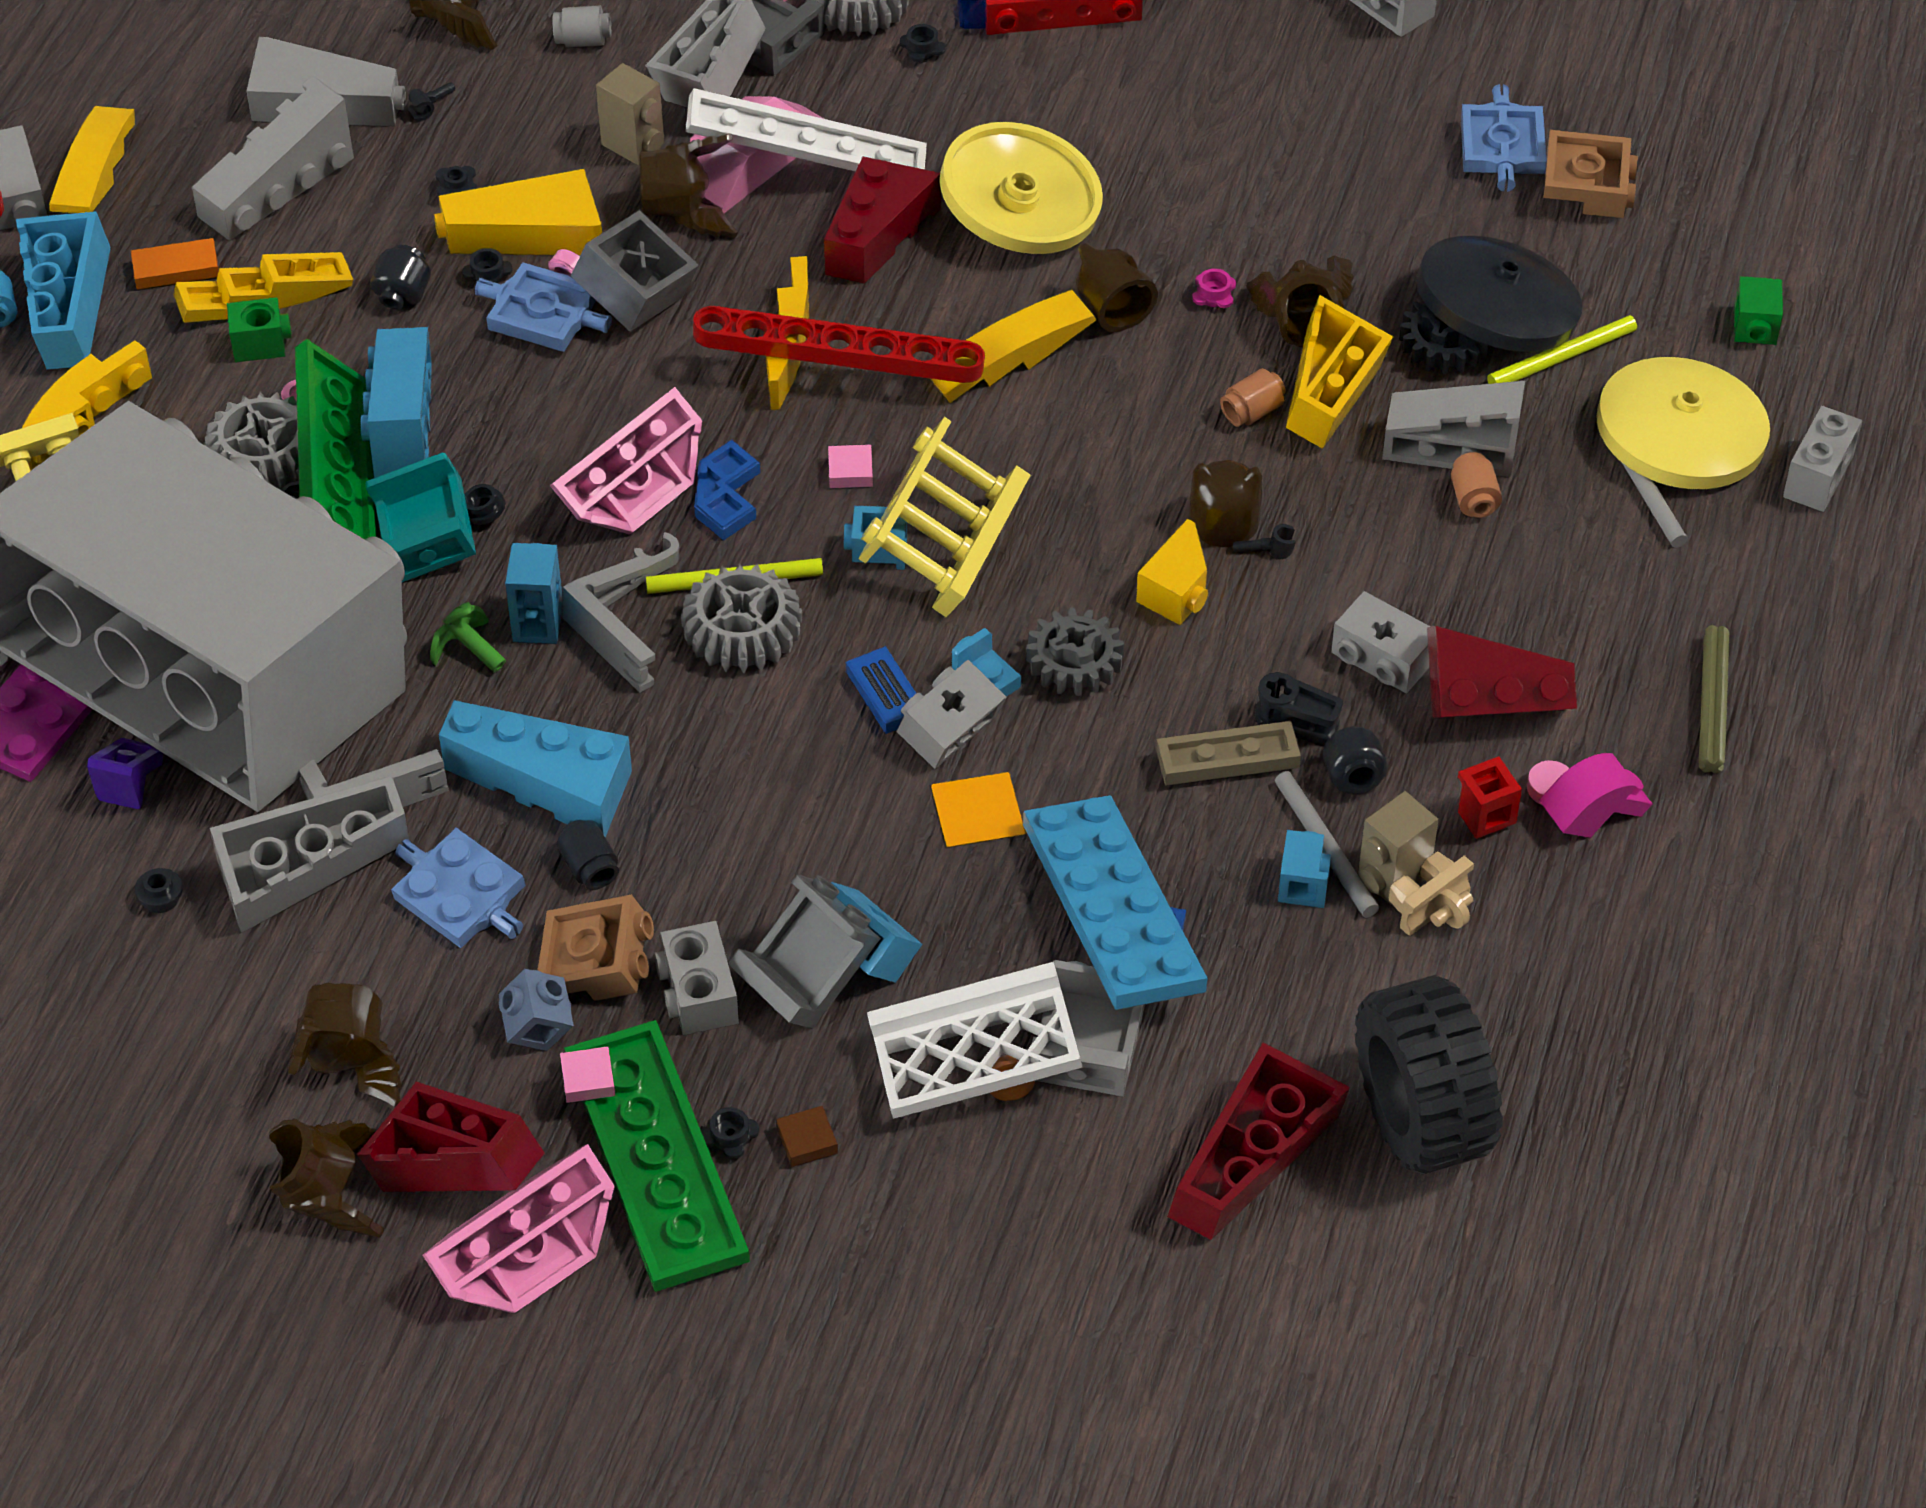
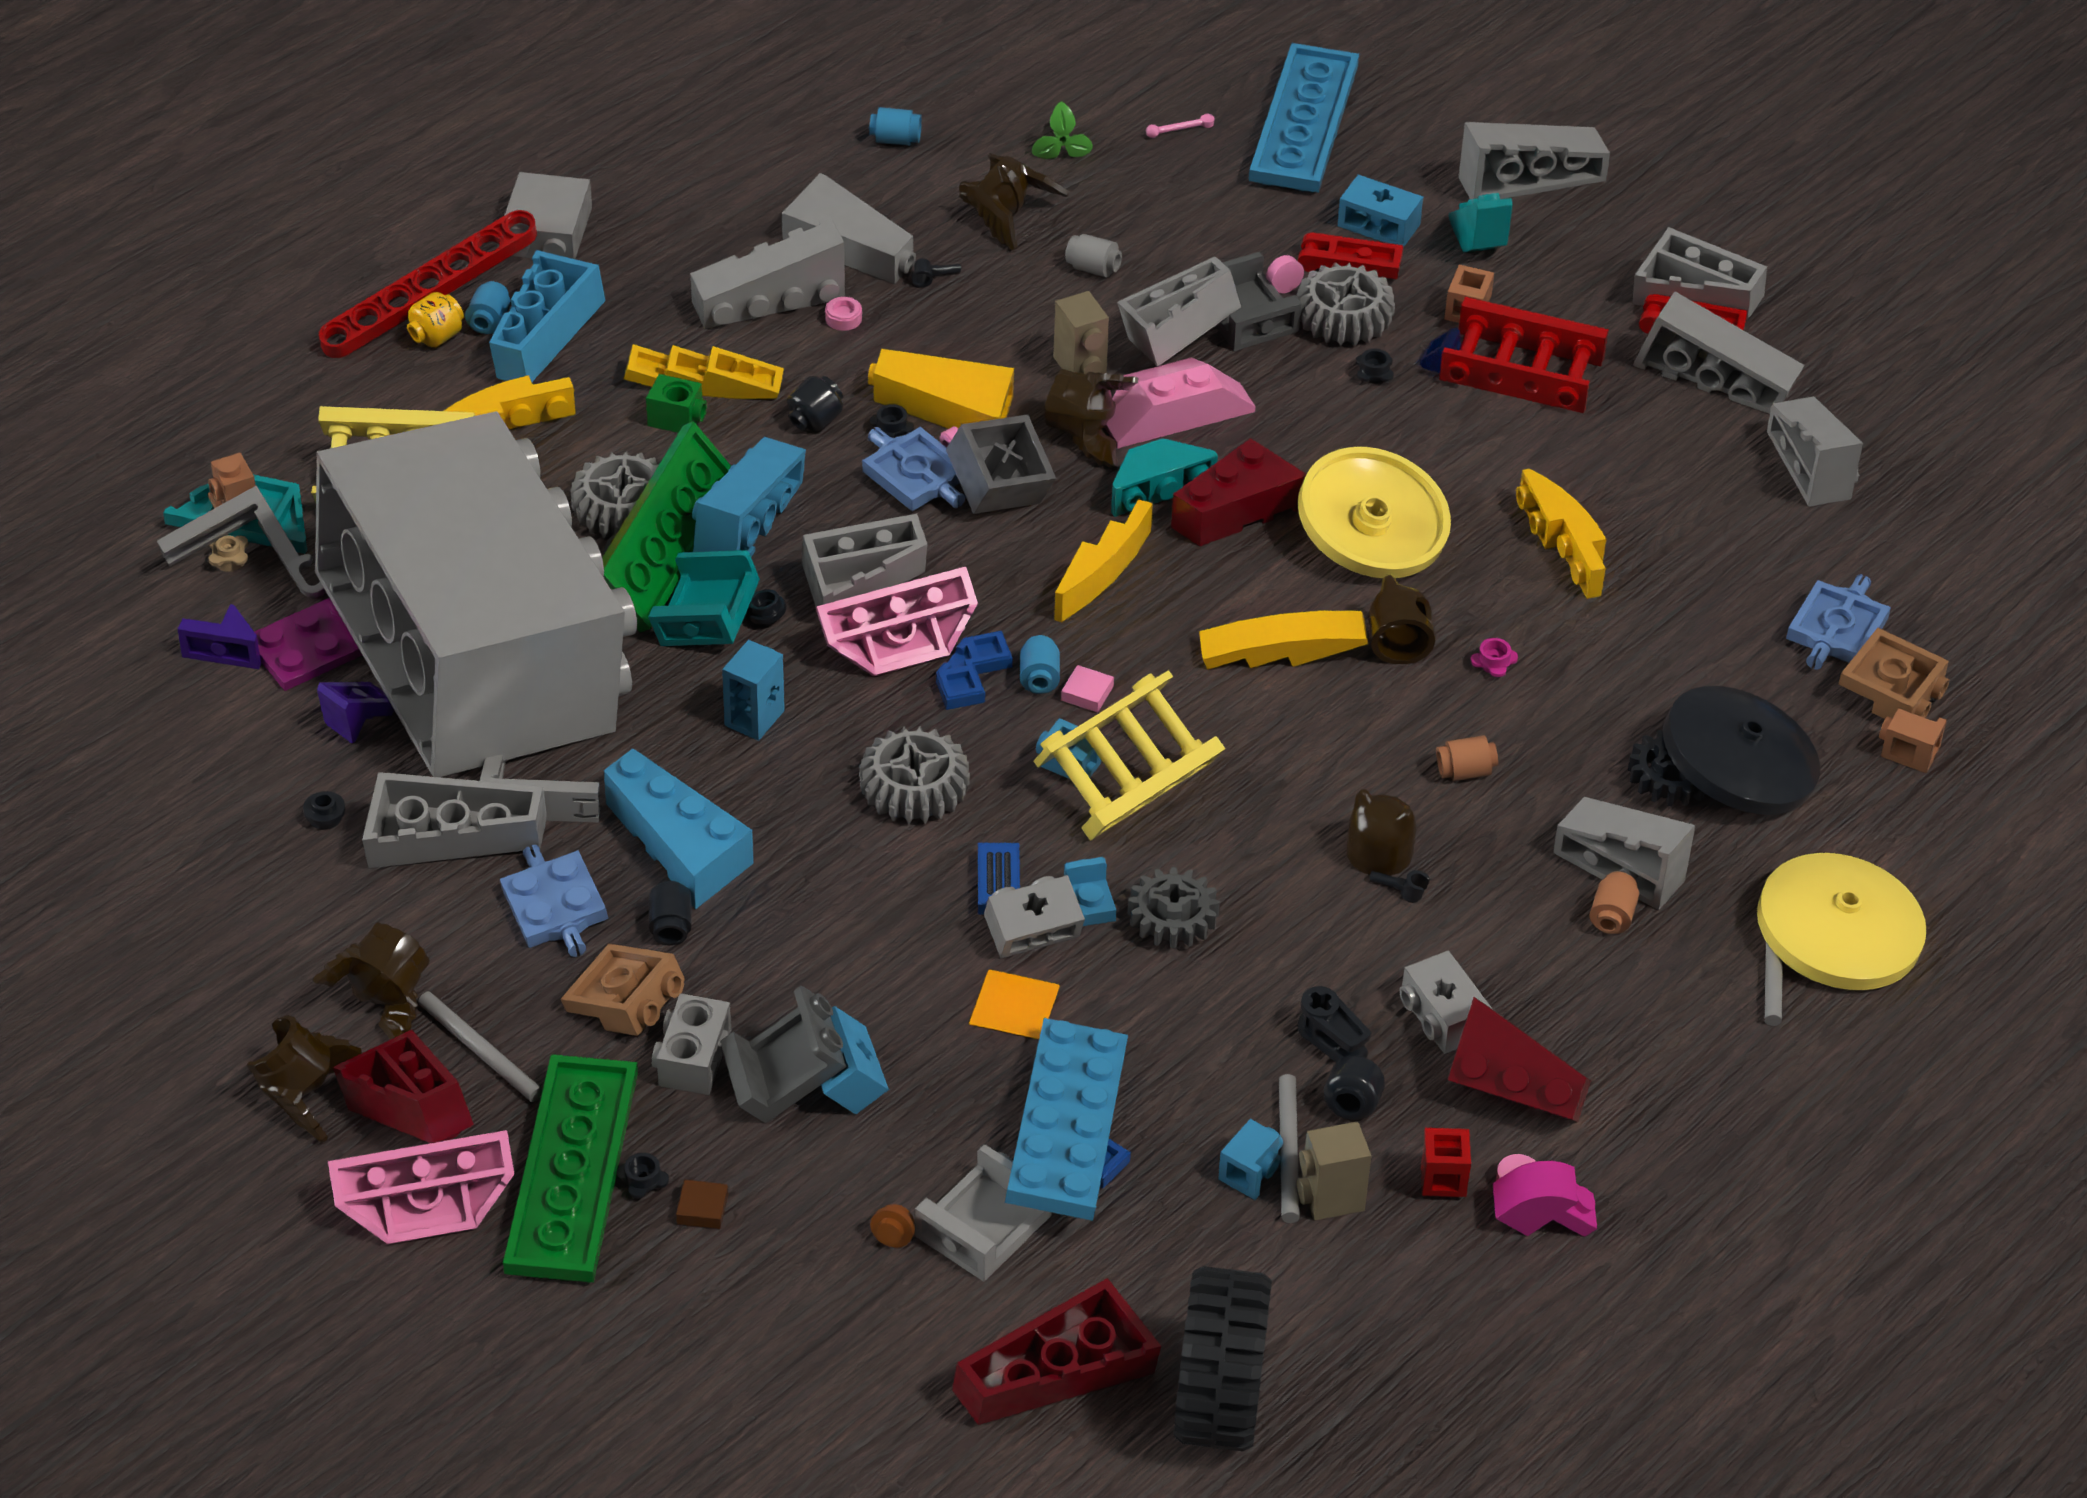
camera: 25 degrees right, 5 degrees down
(91, 160) = (627, 228): yellow slope -> none
(174, 263) = (647, 330): orange tile -> none
(364, 174) = (843, 313): none -> bright pink tile
(455, 179) = (911, 342): black plate -> none
(460, 626) = (683, 693): bright green plant -> none
(477, 1069) = (480, 1046): none -> light grey bar
(535, 1009) = (546, 1015): sand blue brick -> none
(554, 422) = (863, 557): none -> light grey wedge
(587, 612) = (808, 710): light grey hinge -> none
(587, 1074) = (552, 1081): bright pink tile -> none
(685, 580) = (971, 749): neon yellow bar -> none
(789, 222) = (1156, 472): none -> teal slope
(792, 459) = (1040, 664): none -> dark azure brick
(797, 133) = (1205, 400): white plate -> none
(856, 355) = (1138, 597): red beam -> none
(967, 1013) = (880, 1157): white fence -> none
(1175, 576) = (1299, 878): yellow slope -> none
(1200, 133) = (1564, 525): none -> yellow slope
(1228, 753) = (1250, 1040): dark tan plate -> none
(1297, 293) = (1564, 694): dark brown helmet -> none
(1334, 369) = (1546, 761): yellow wedge -> none
(1439, 900) = (1353, 1227): tan hips -> none
(1565, 351) = (1775, 822): neon yellow bar -> none
(1637, 226) = (1911, 739): none -> nougat brick
(1714, 699) = (1713, 1163): olive axle -> none
(1758, 310) = (1975, 851): green brick -> none
(1822, 458) = (1947, 998): light grey brick -> none

